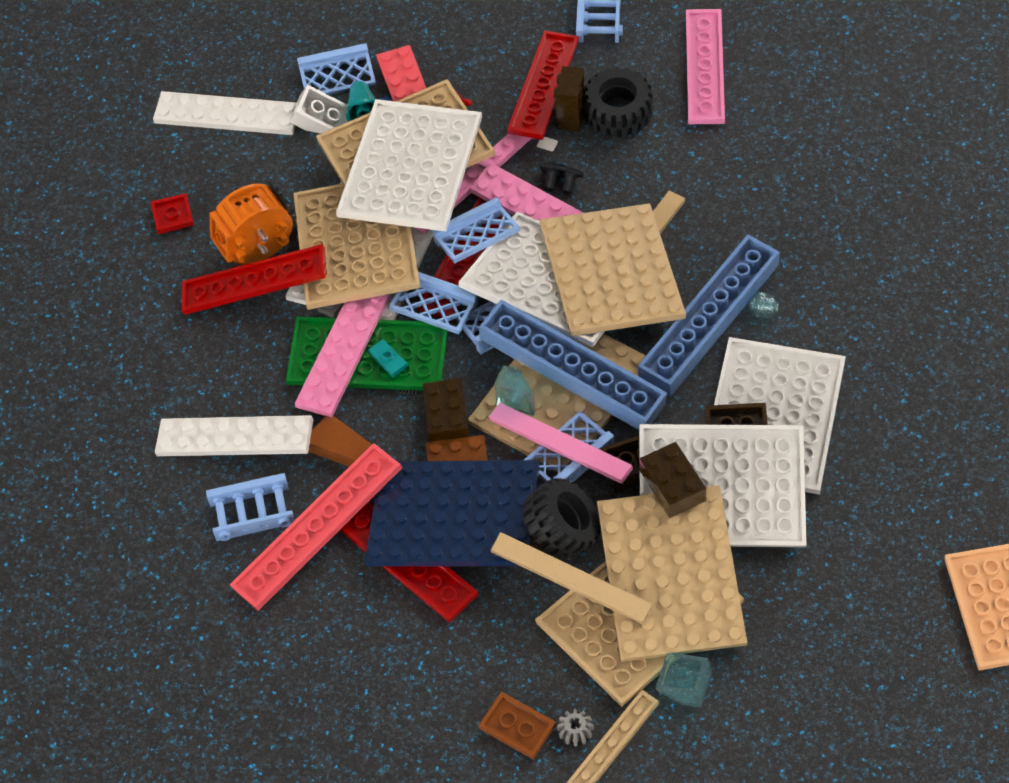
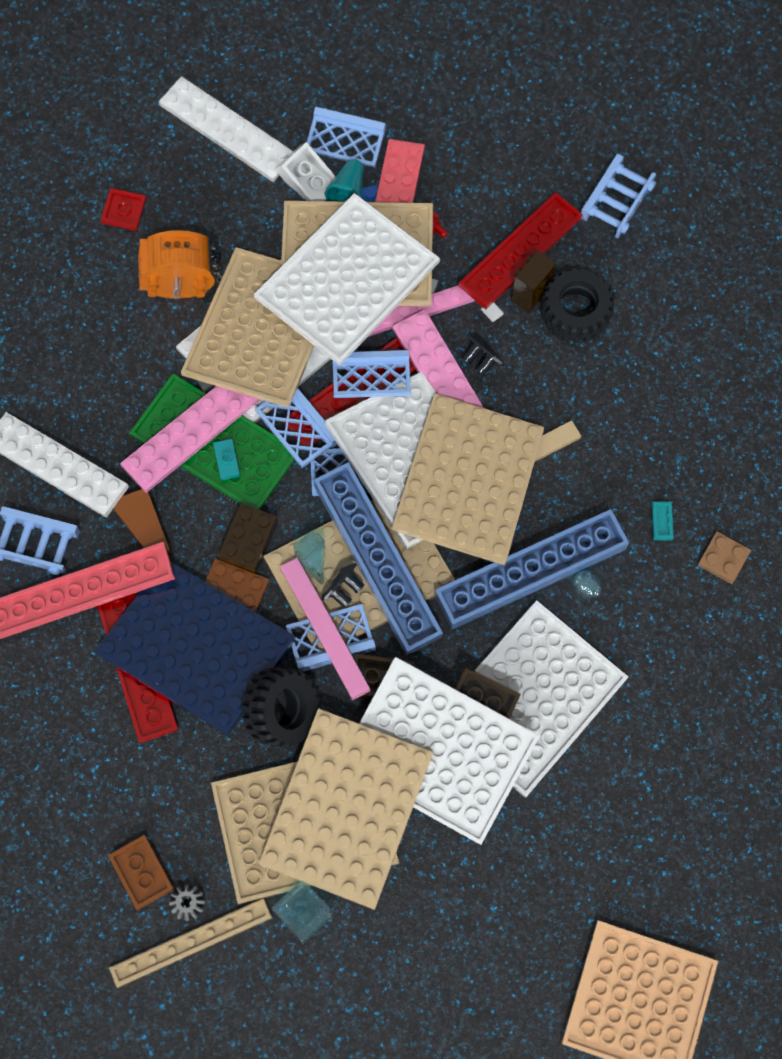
camera: 20 degrees right, 15 degrees up
(254, 279) = (153, 319): red plate -> none
(552, 394) = (342, 575): none -> black connector
(571, 578) = (254, 770): tan tile -> none
(672, 479) = (391, 728): dark brown brick -> none
(705, 66) = (680, 307): bright pink plate -> none
(795, 228) = (662, 521): none -> teal plate
(865, 231) = (724, 557): none -> medium nougat plate

